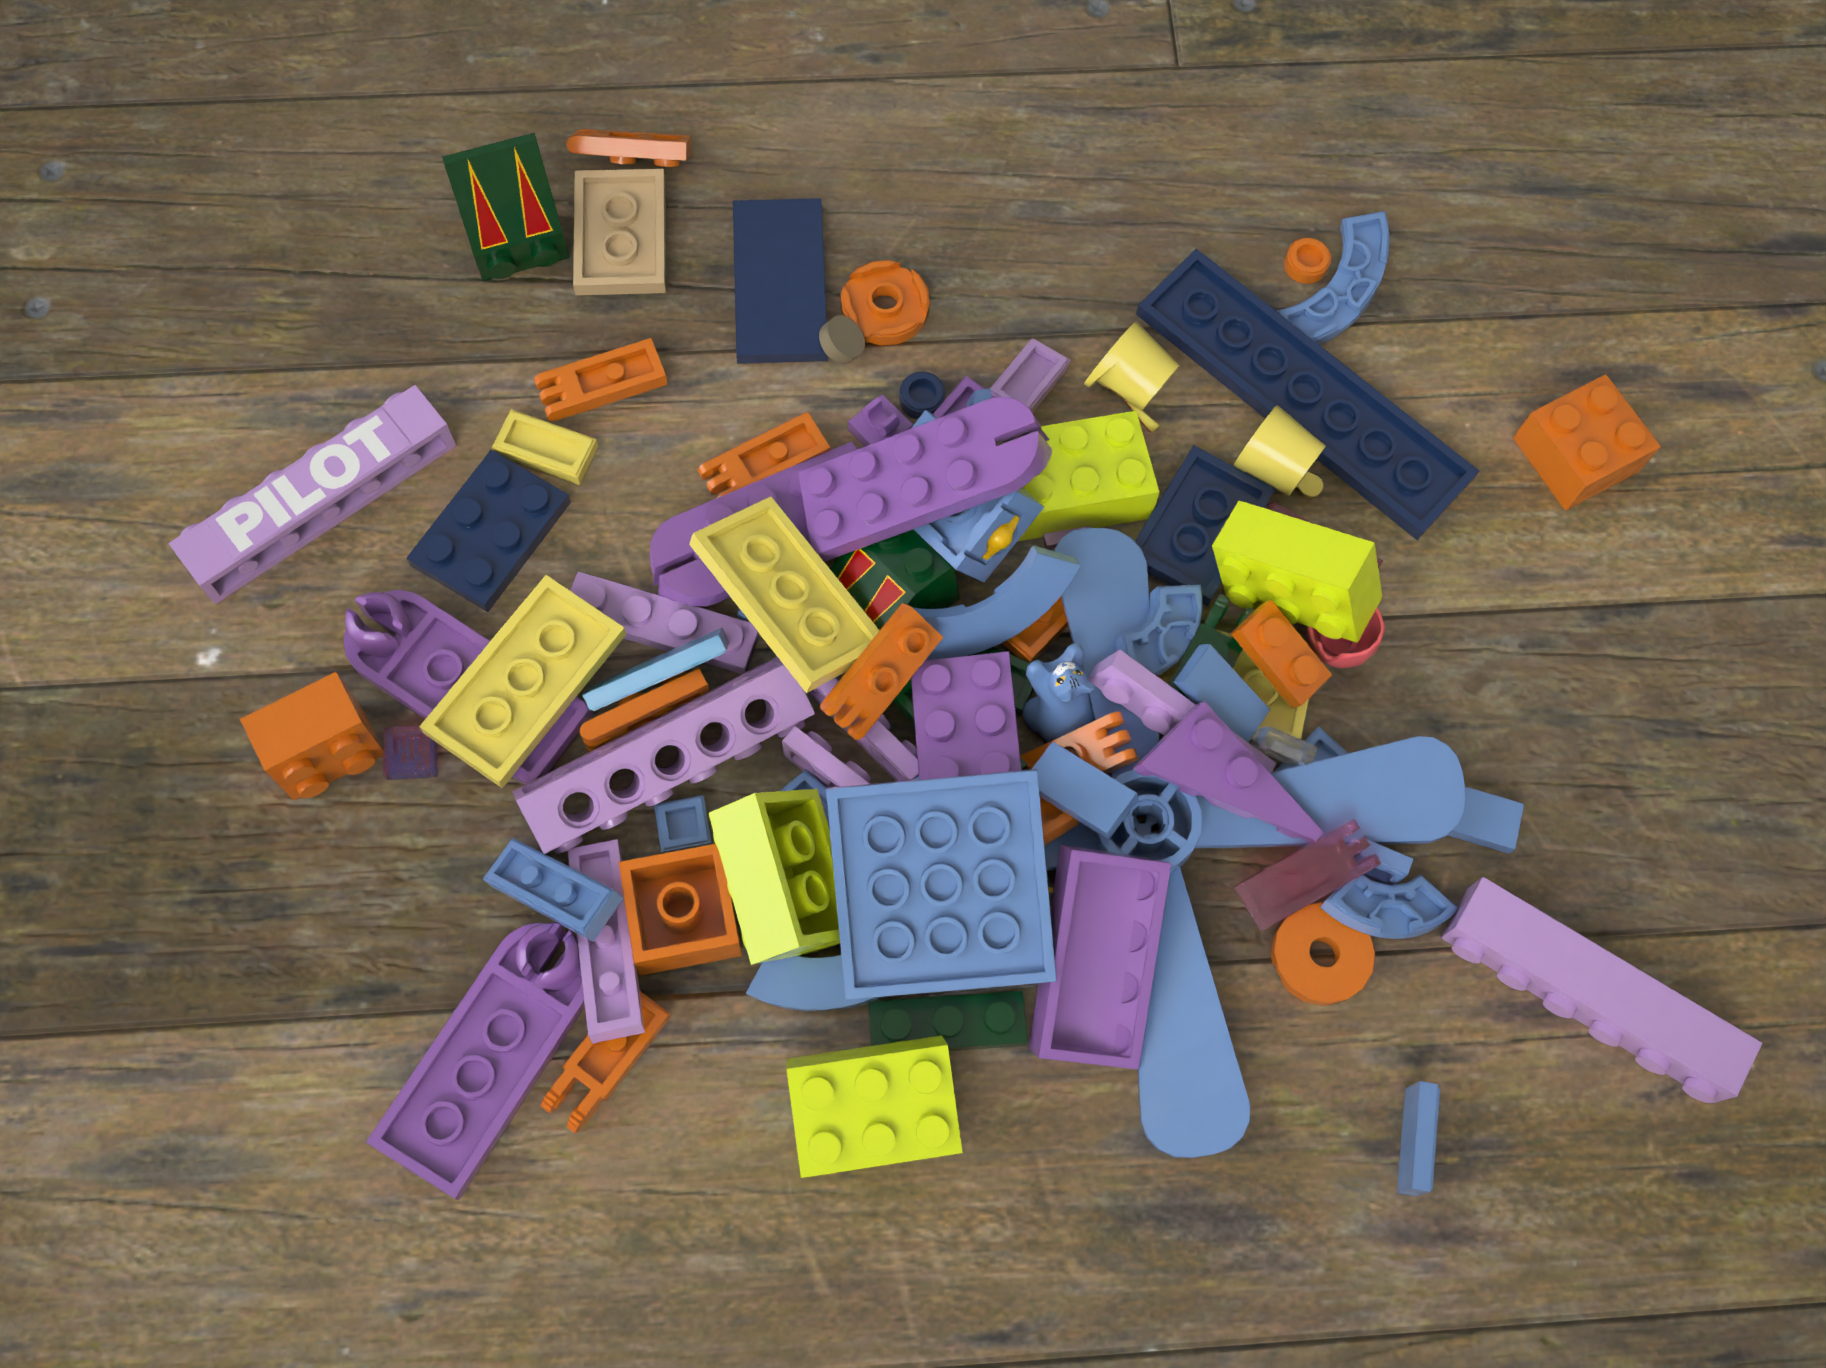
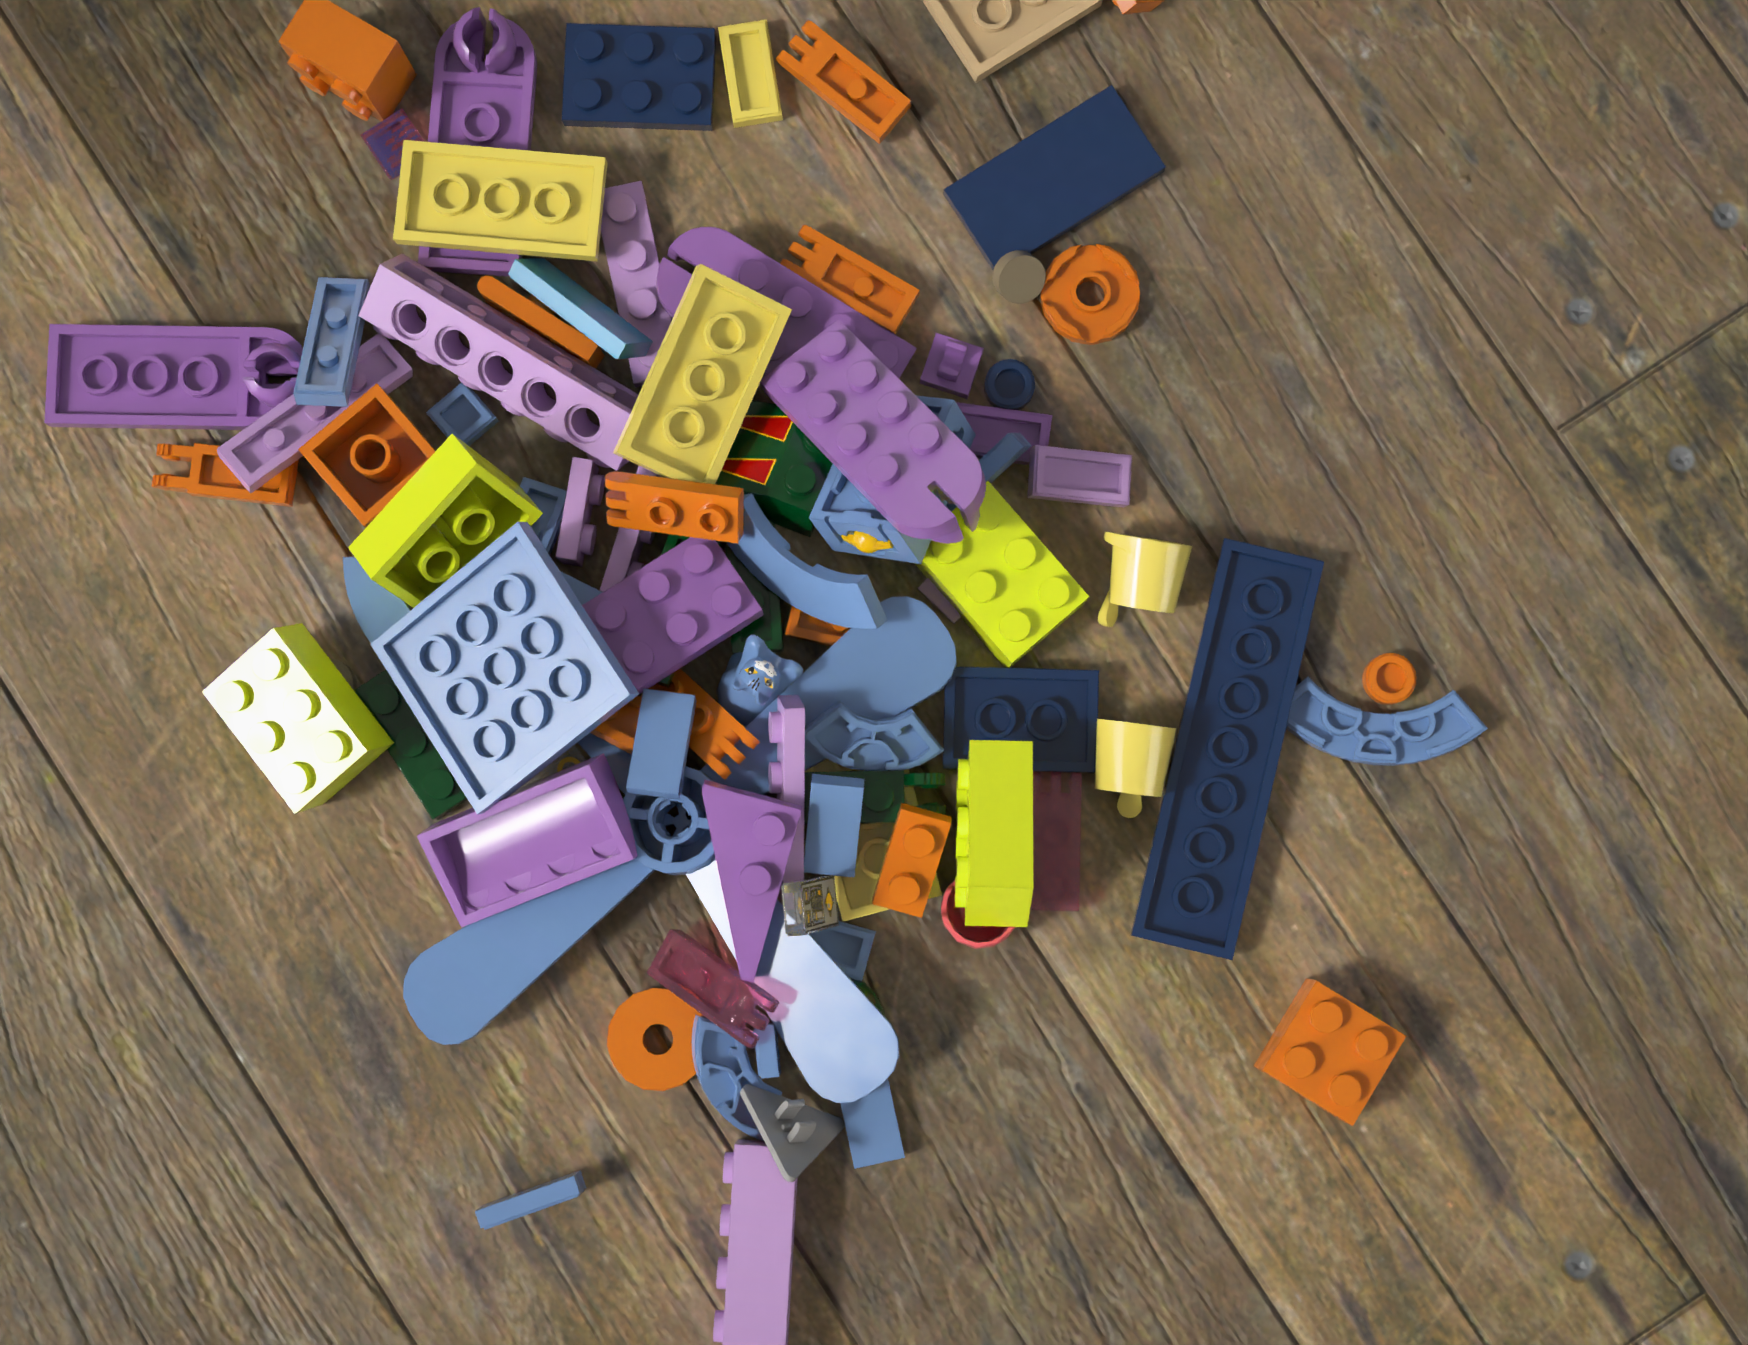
camera: 70 degrees right, 15 degrees up
(1462, 873) = (790, 1129): none -> light grey piece

